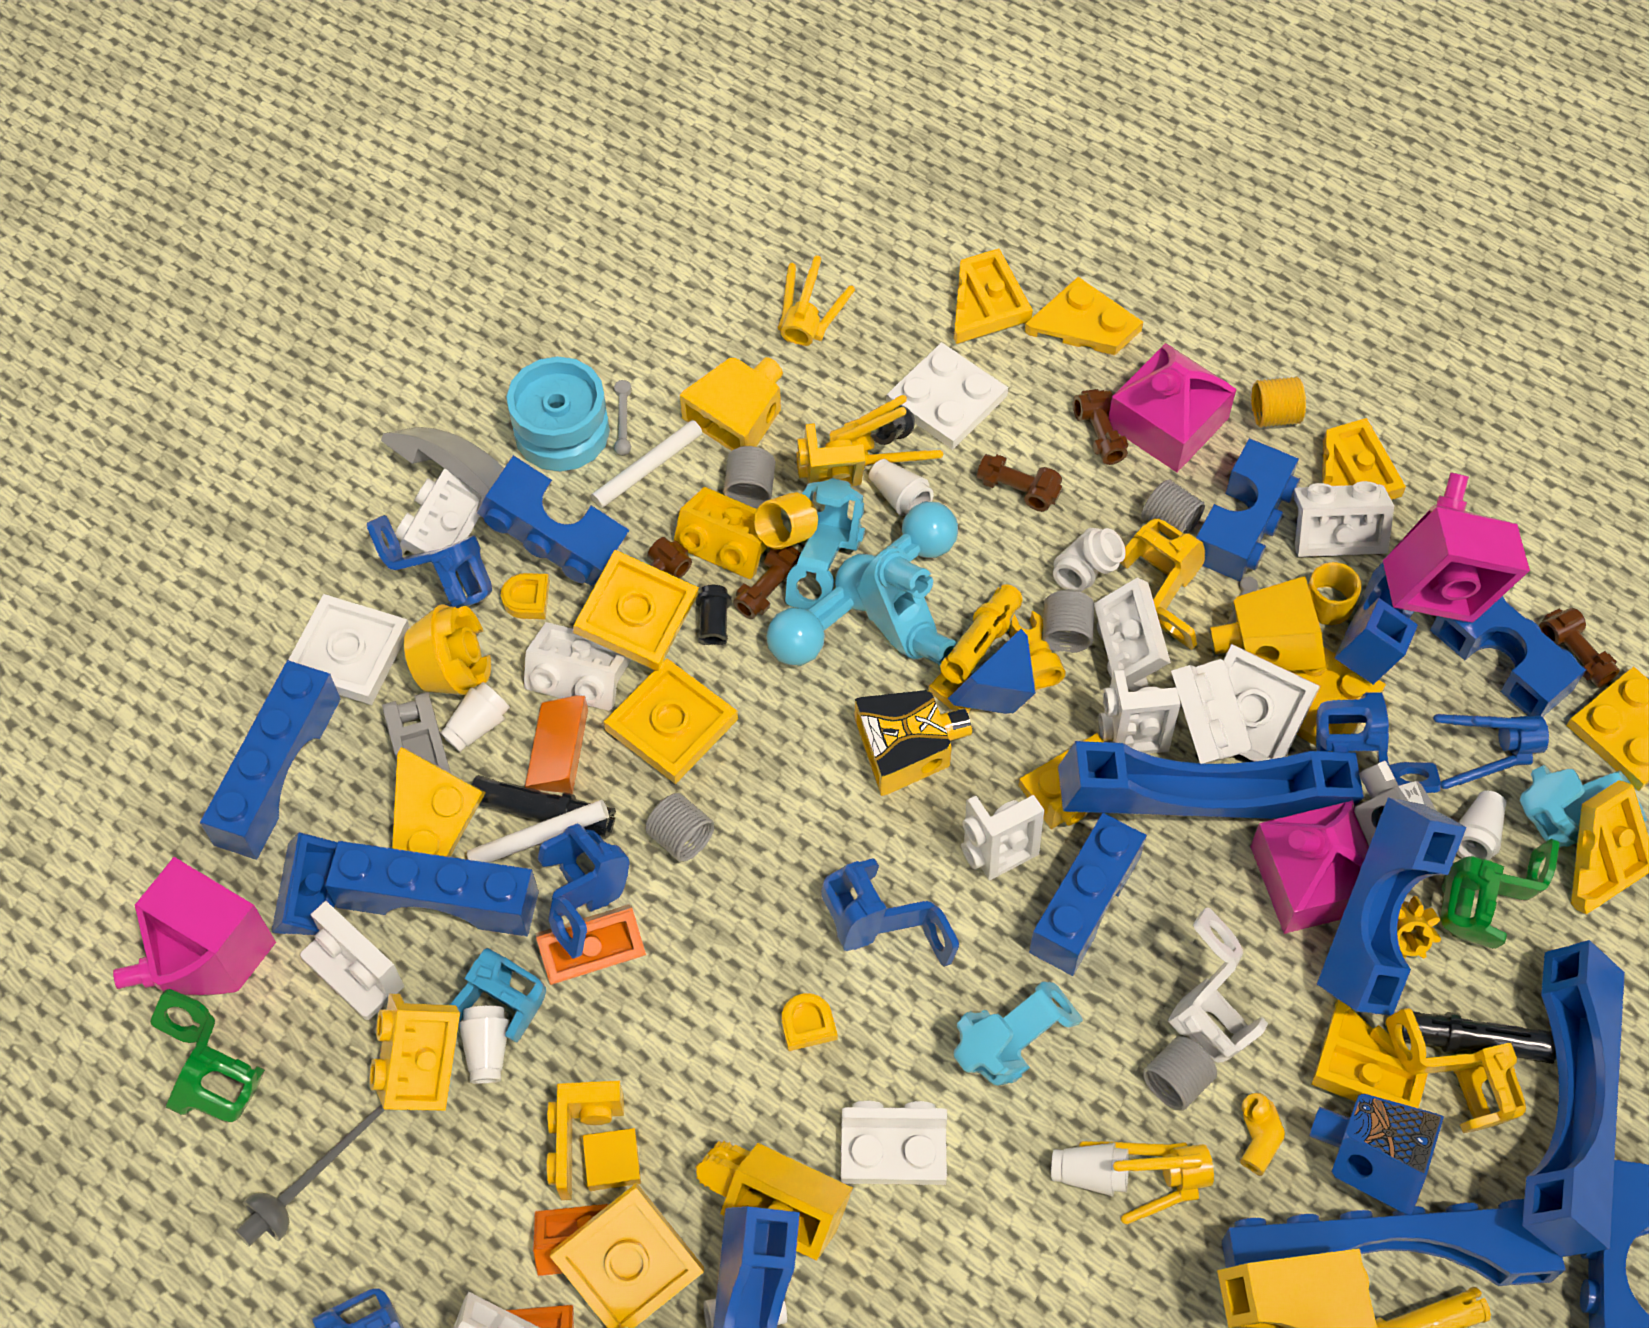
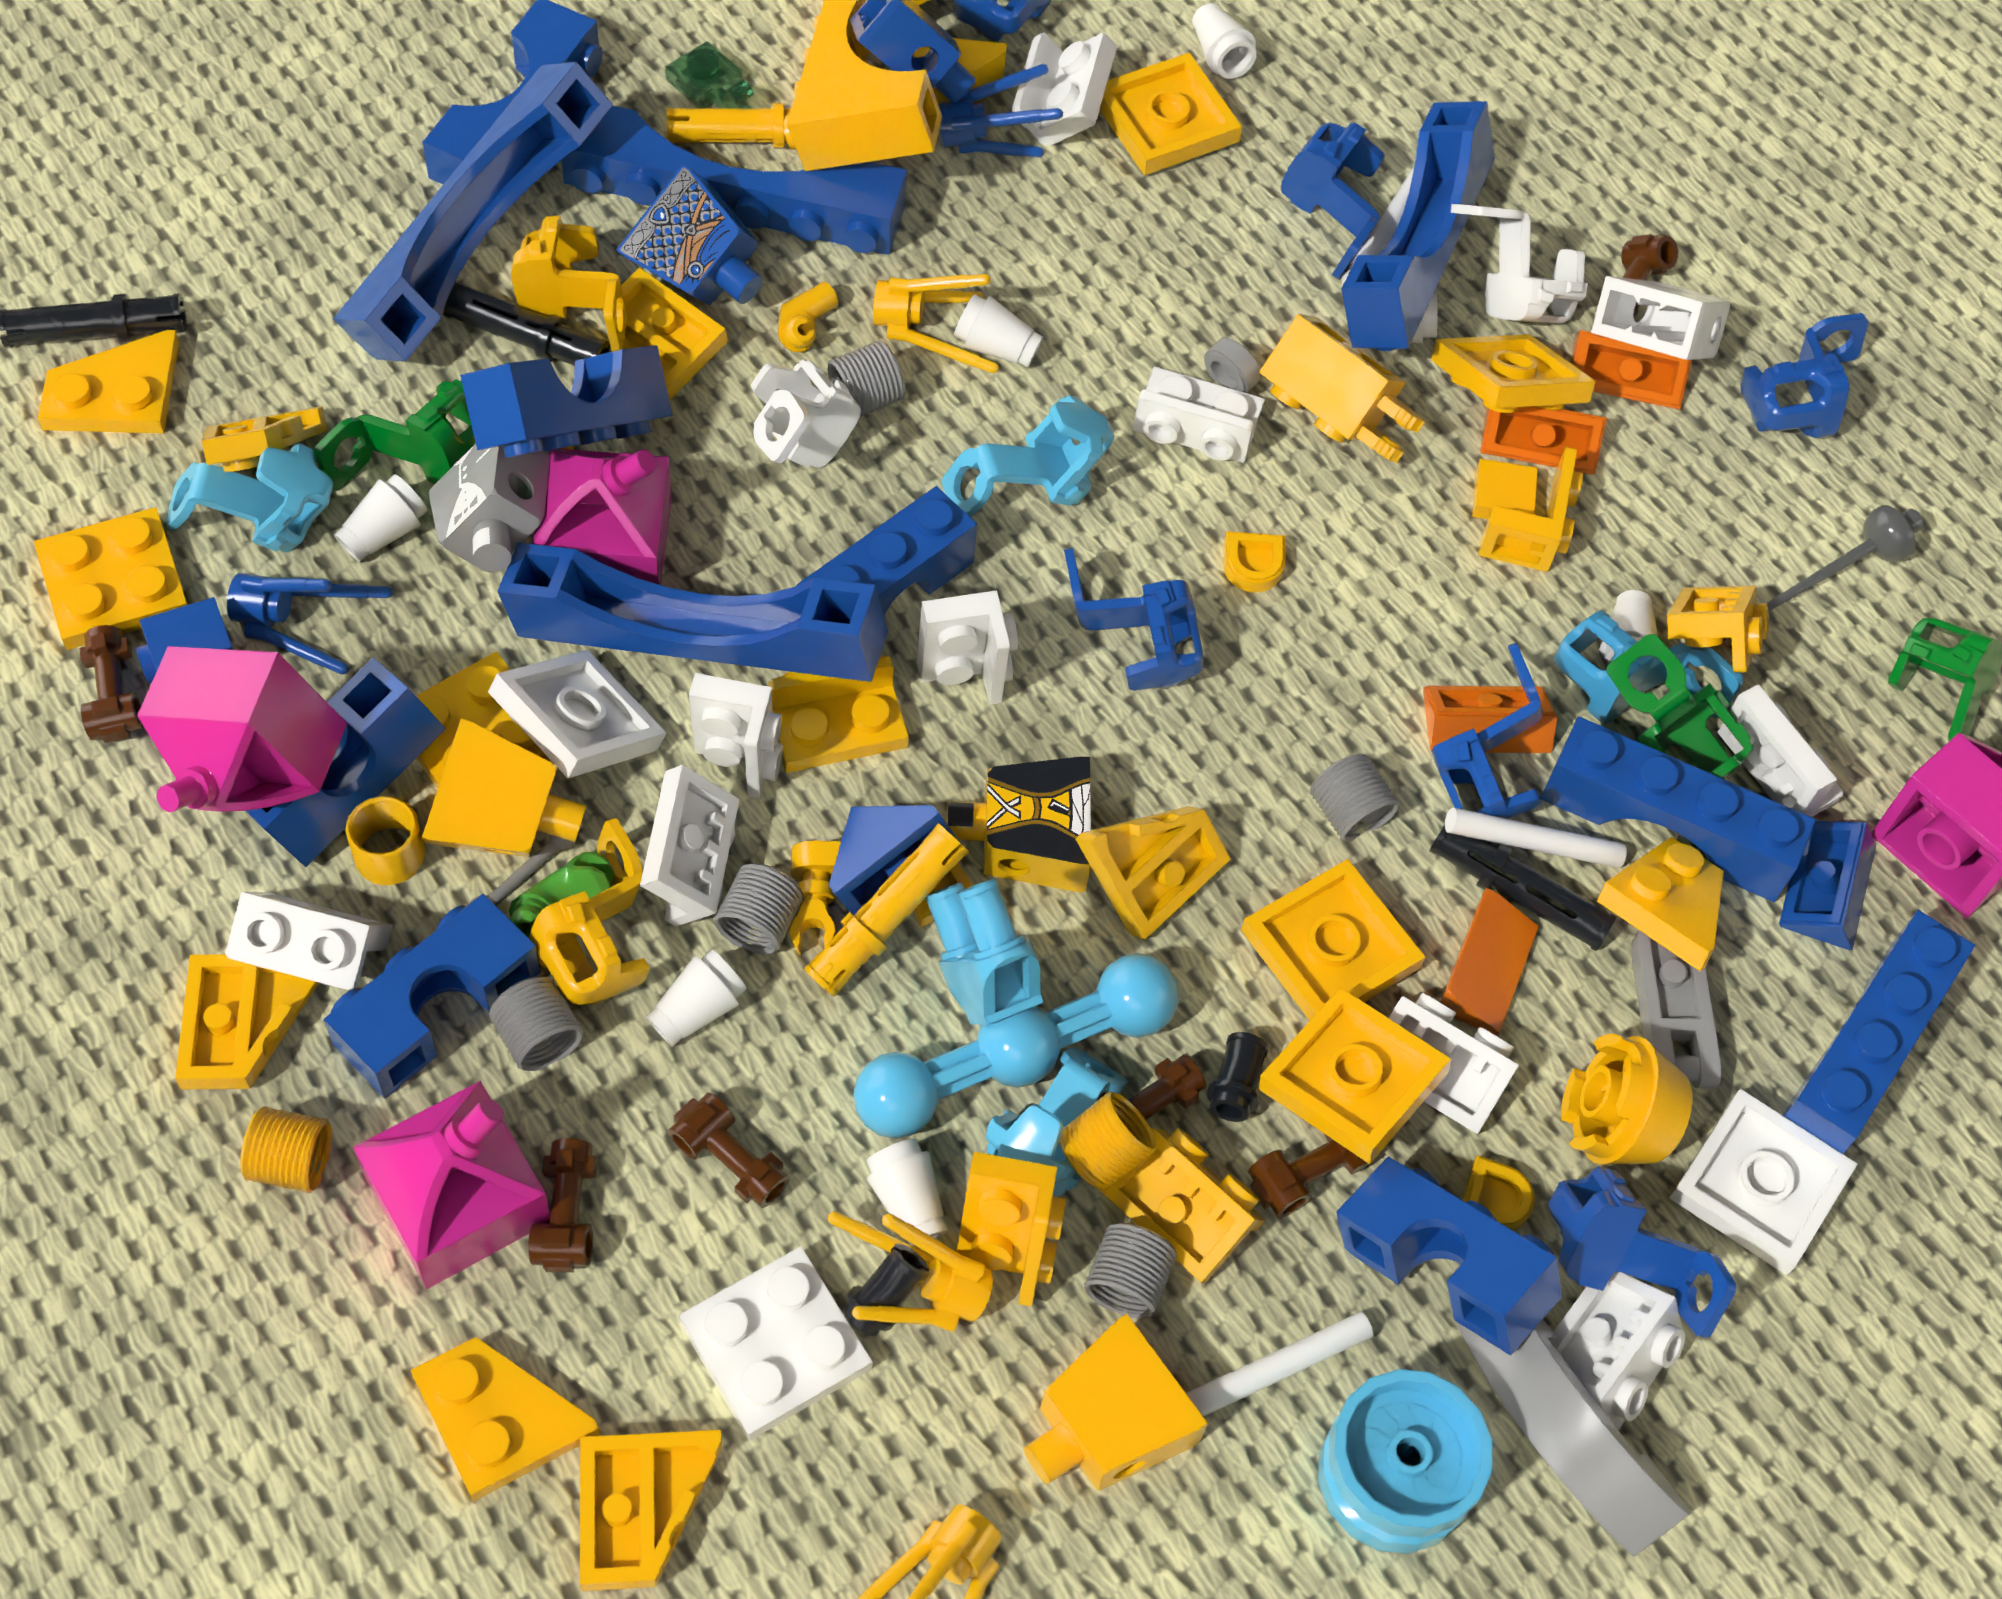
camera: 170 degrees left, 0 degrees up
(447, 946) = (1678, 714): none -> green piece
(474, 717) = (1589, 1020): white cone -> none
(622, 389) = (1282, 1524): light grey hinge -> none
(811, 726) = (1154, 864): none -> yellow wing
(878, 1199) = (1232, 365): none -> light grey tile
(1103, 550) = (673, 963): white plate -> none
(1211, 593) = (584, 872): none -> bright green piece
(1212, 711) = (647, 702): white bracket -> none
(1374, 737) = (458, 621): blue piece -> none

